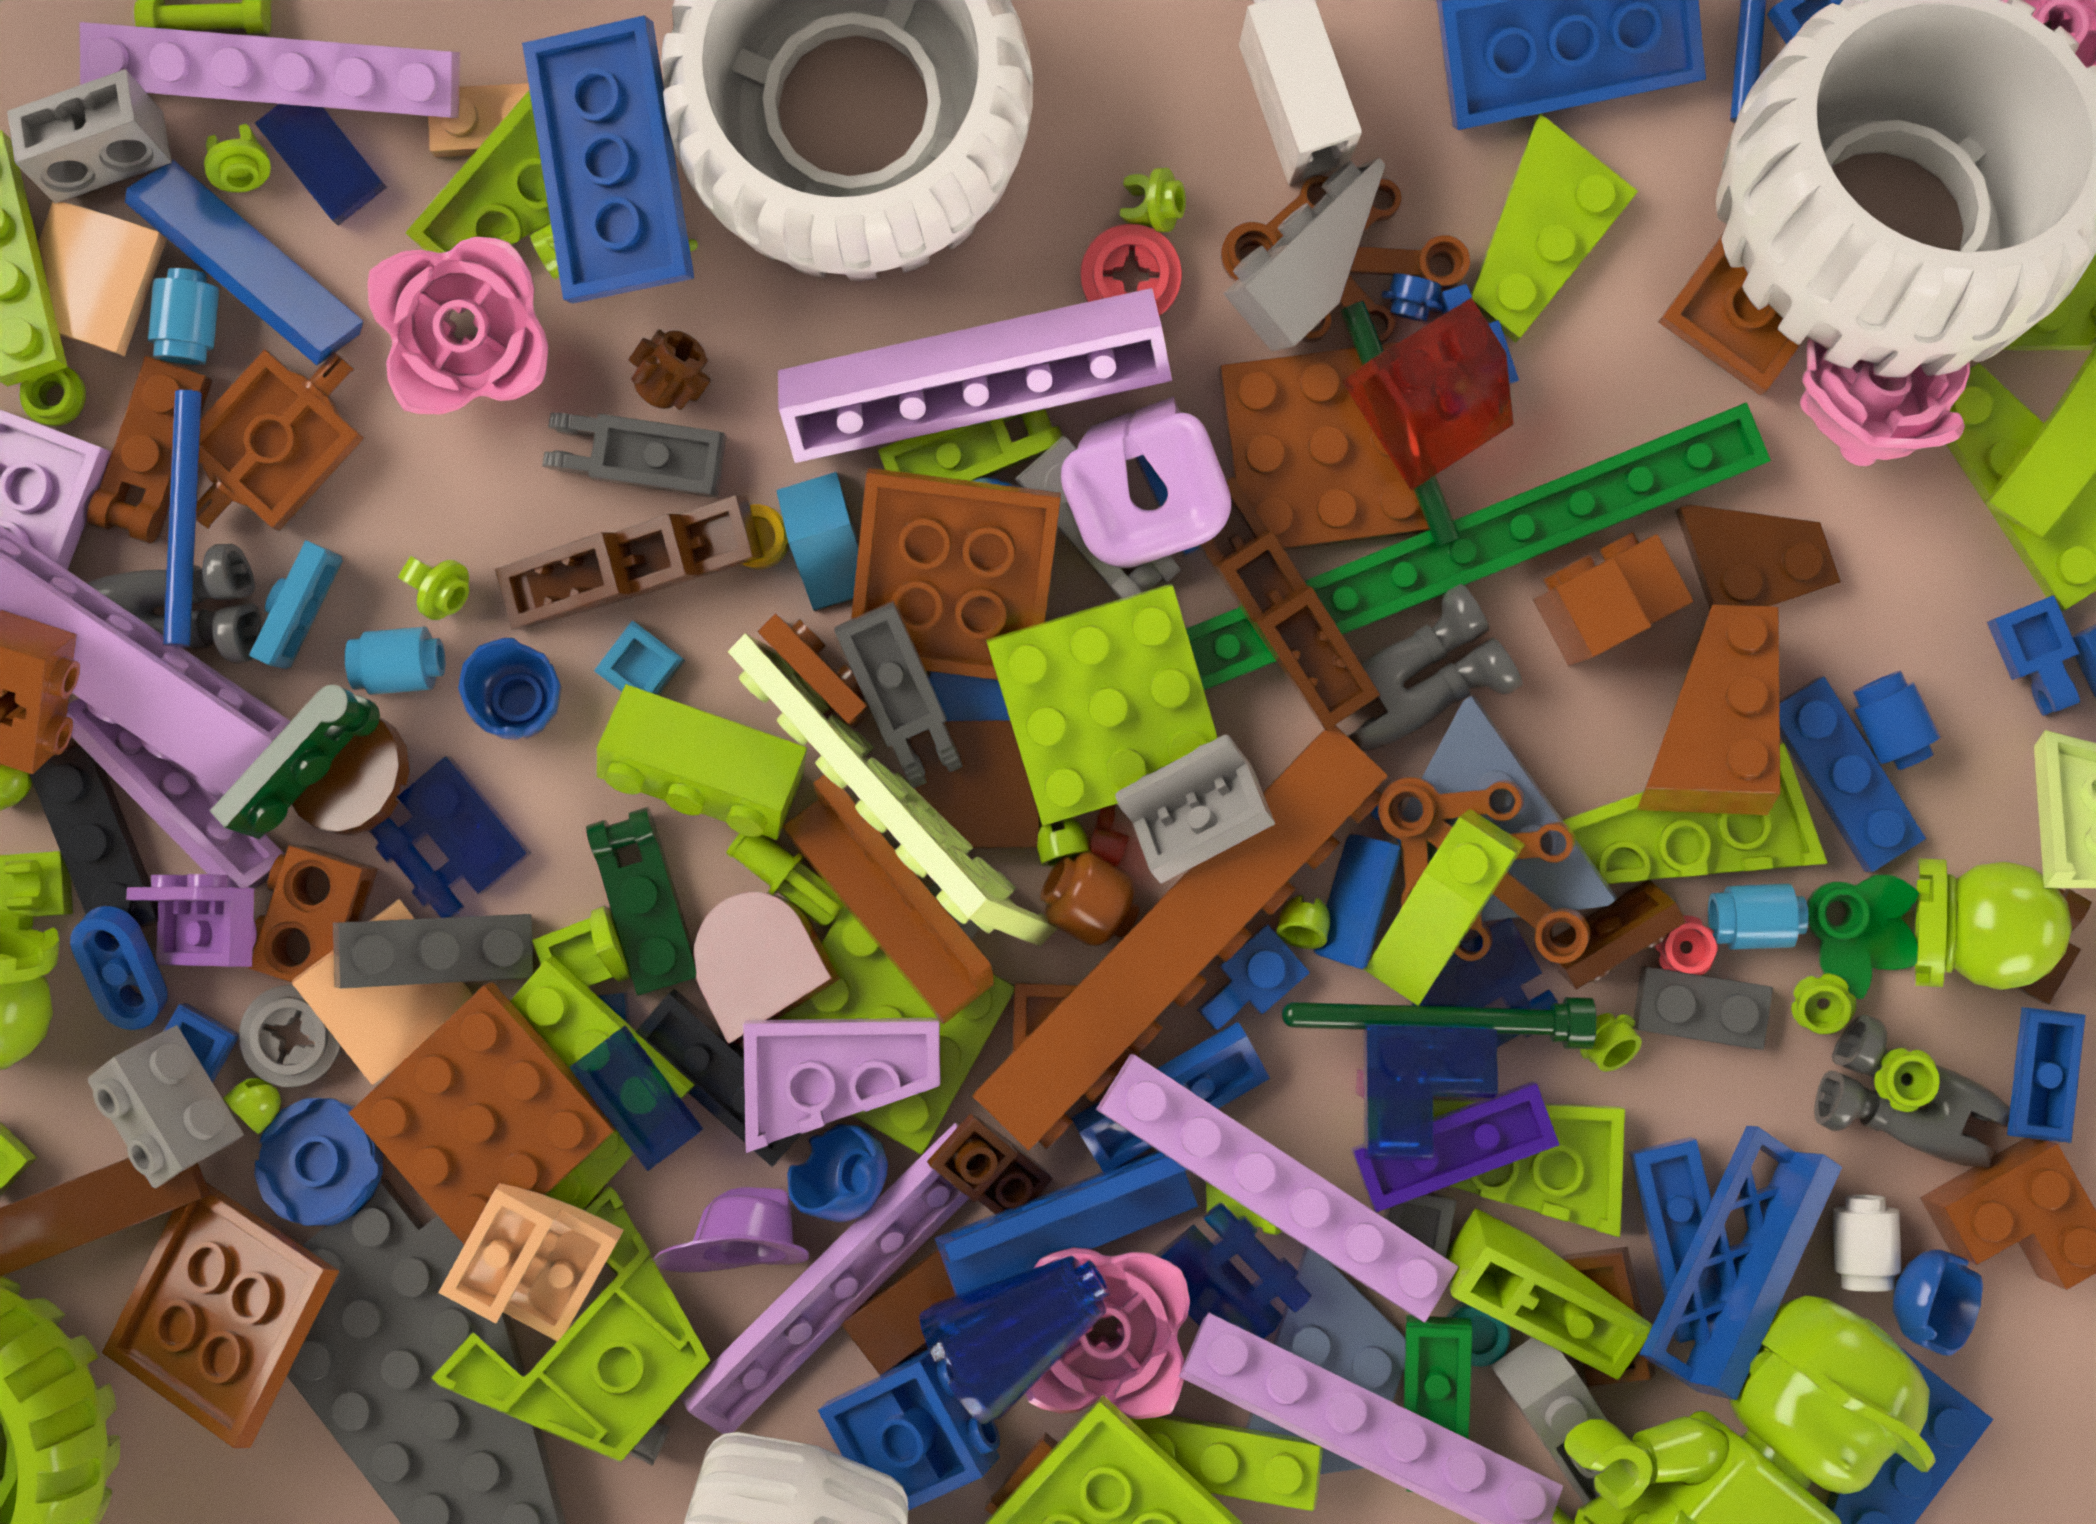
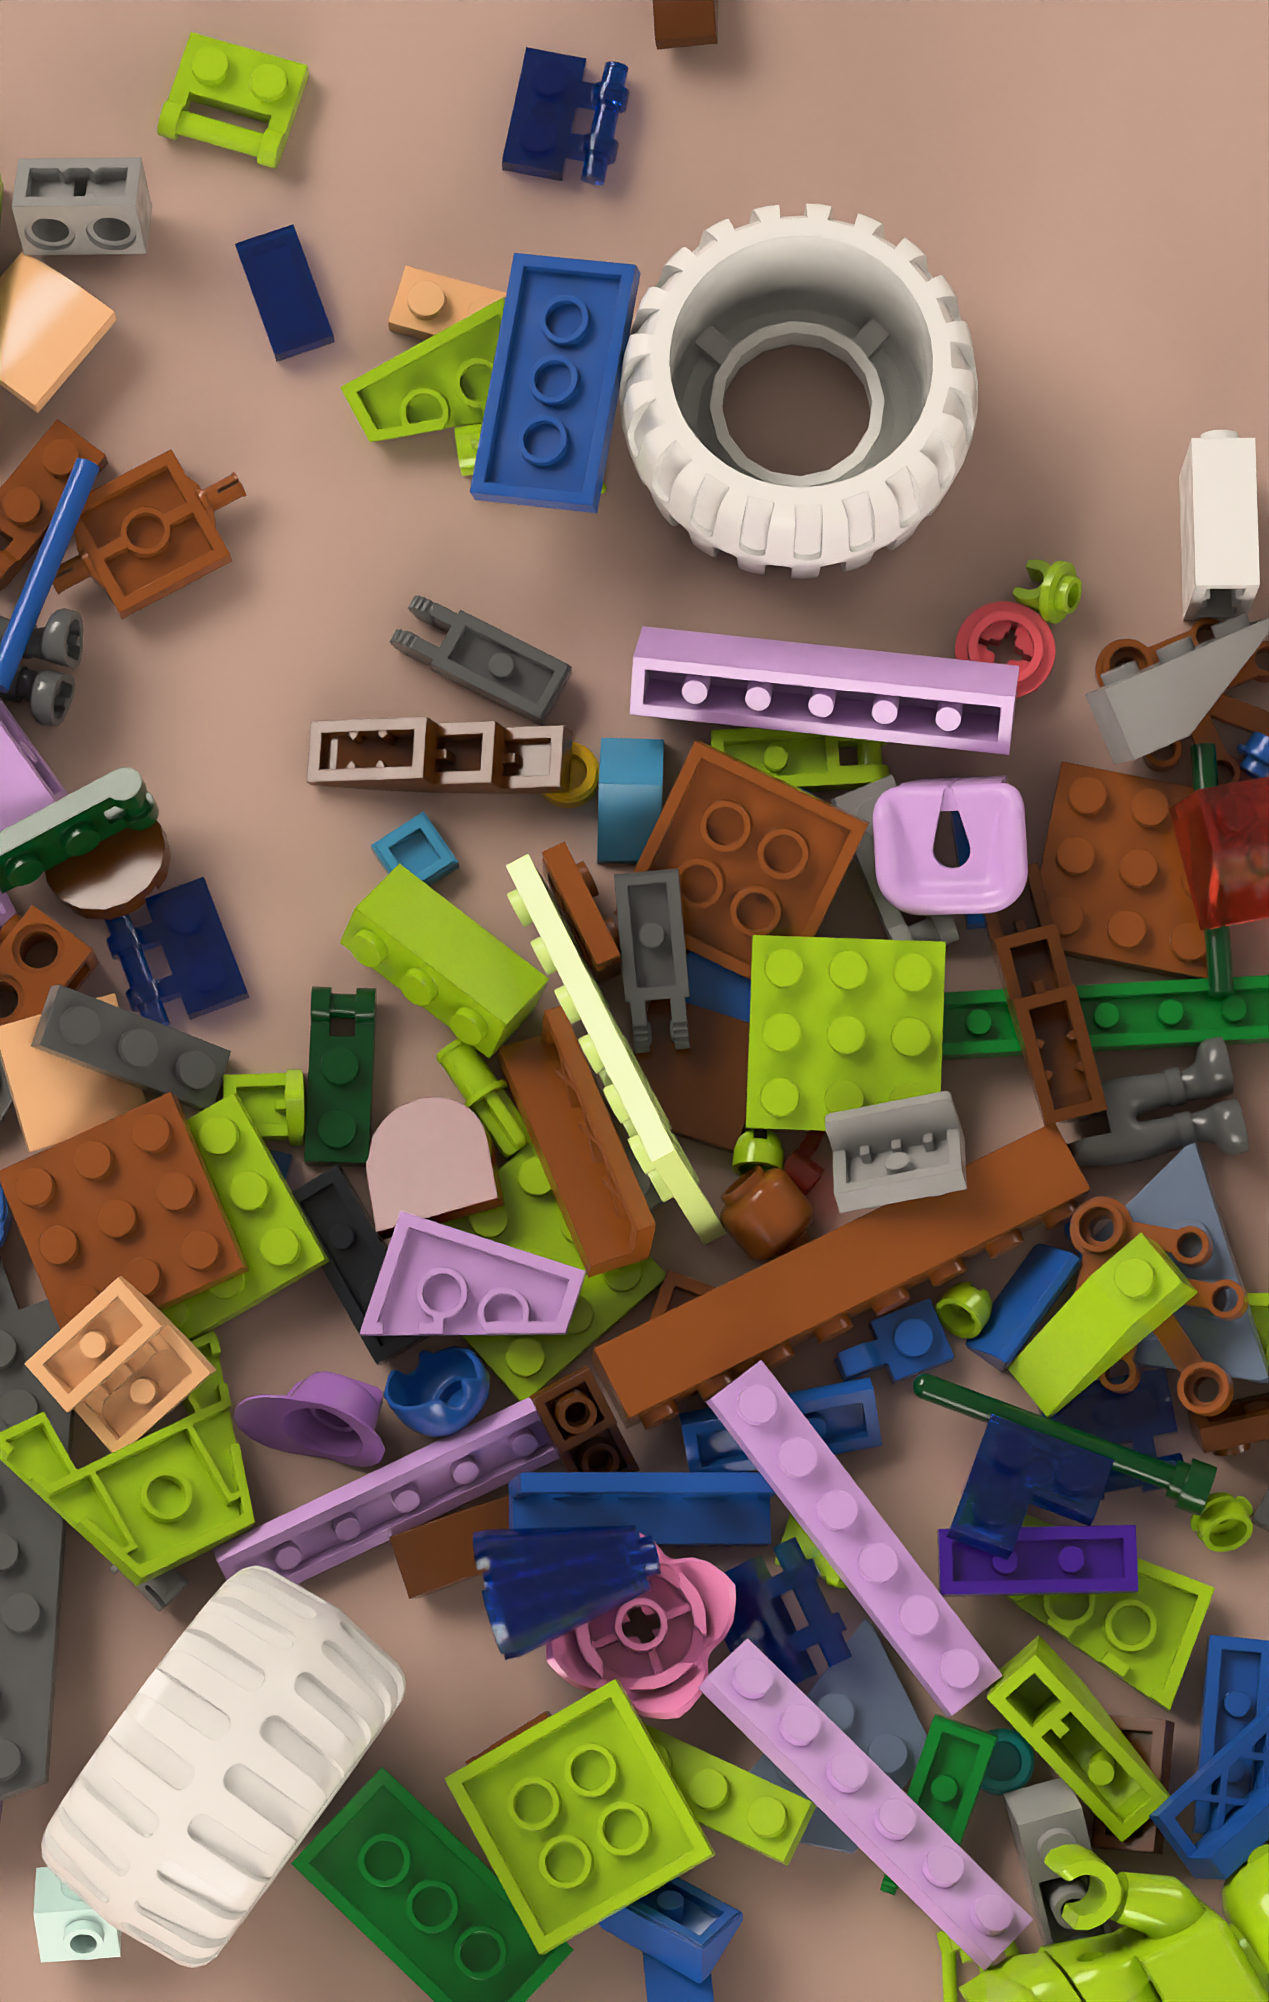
camera: 15 degrees right, 10 degrees down
(183, 317) = (106, 395): dark azure brick -> none
(237, 163) = (206, 274): lime plate -> none
(244, 261) = (180, 365): tile -> none
(275, 69) = (274, 202): lavender plate -> none
(295, 604) = (113, 690): dark azure plate -> none
(394, 660) = (189, 772): dark azure brick -> none
(427, 363) = (327, 450): bright pink brick -> none
(440, 588) = (254, 720): lime plate -> none
(509, 689) = (287, 833): blue hair -> none
(636, 1098) = (275, 1246): tile -> none
(669, 369) = (541, 592): reddish brown gear -> none
(913, 1429) = (443, 1656): blue plate -> none
(1426, 1219) = (988, 1624): dark grey plate -> none

